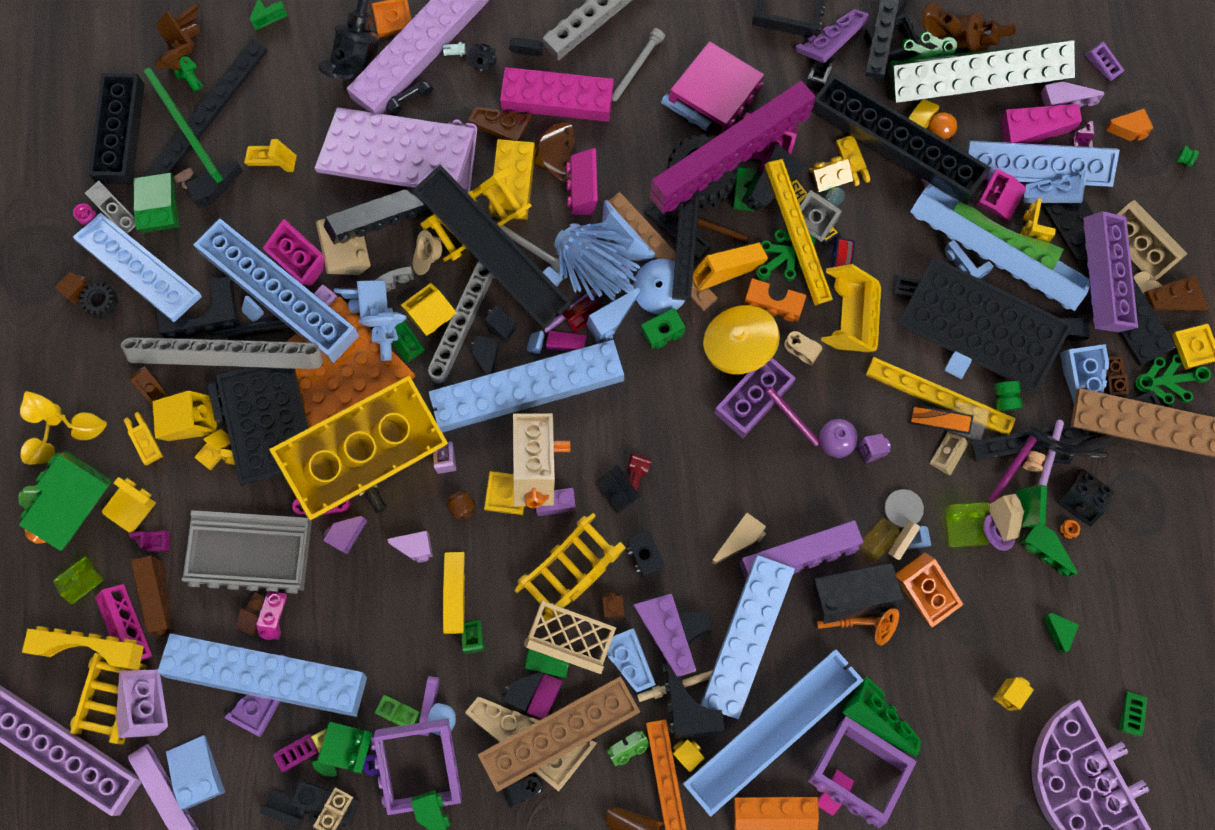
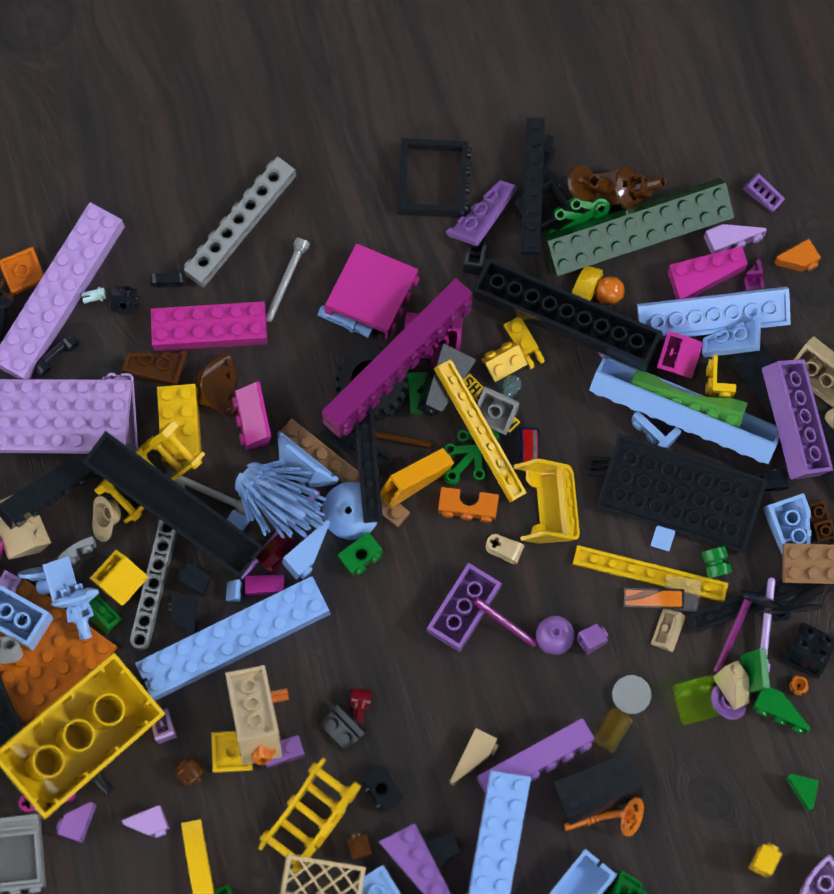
camera: 10 degrees left, 0 degrees up
(741, 339) = (441, 552): yellow dish -> none
(904, 540) = (635, 727): tan tile -> none
(921, 539) = (650, 721): light blue slope -> none
(929, 589) = (668, 772): orange slope -> none
(1034, 461) = (753, 624): light nougat wheel -> none

